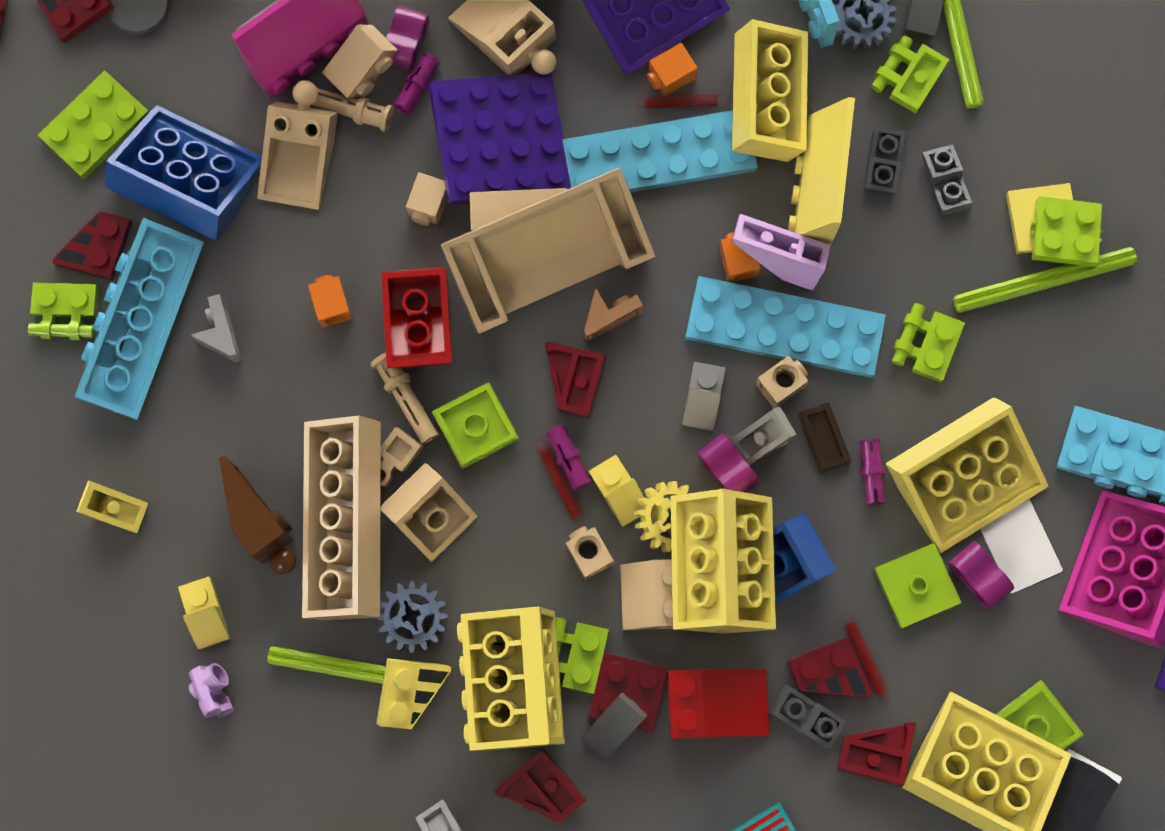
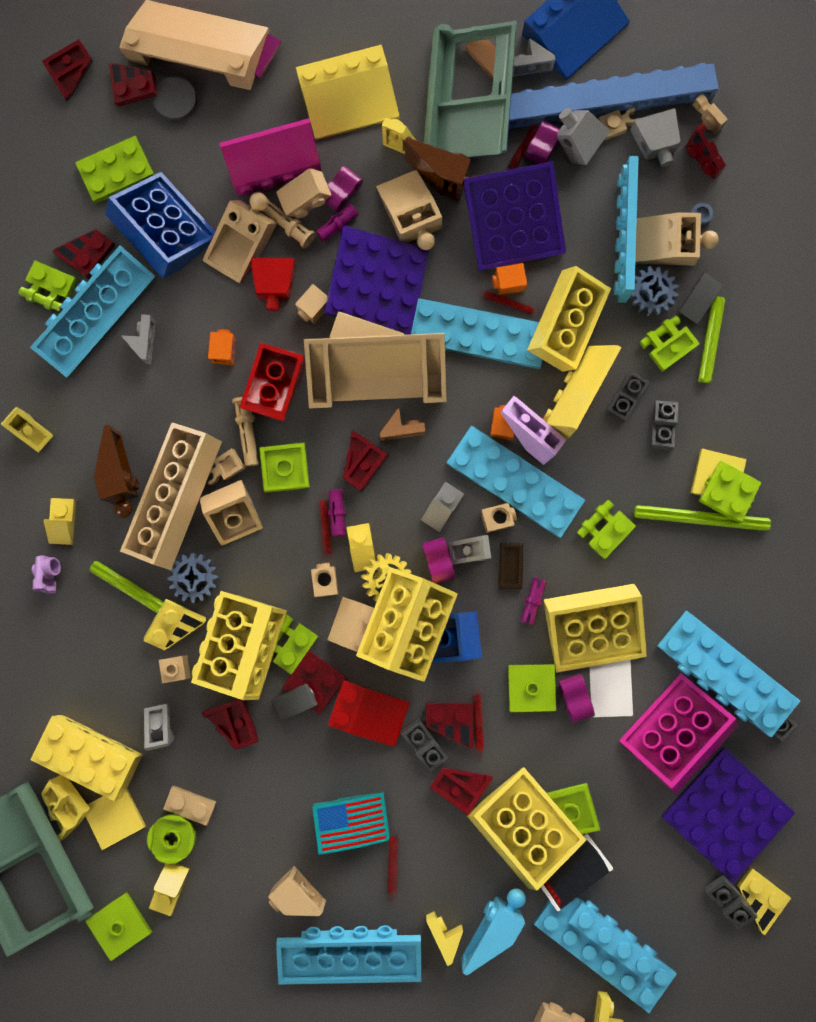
camera: 20 degrees right, 5 degrees up
(362, 187) = (273, 280): none -> red torso
(436, 747) = (174, 669): none -> tan brick

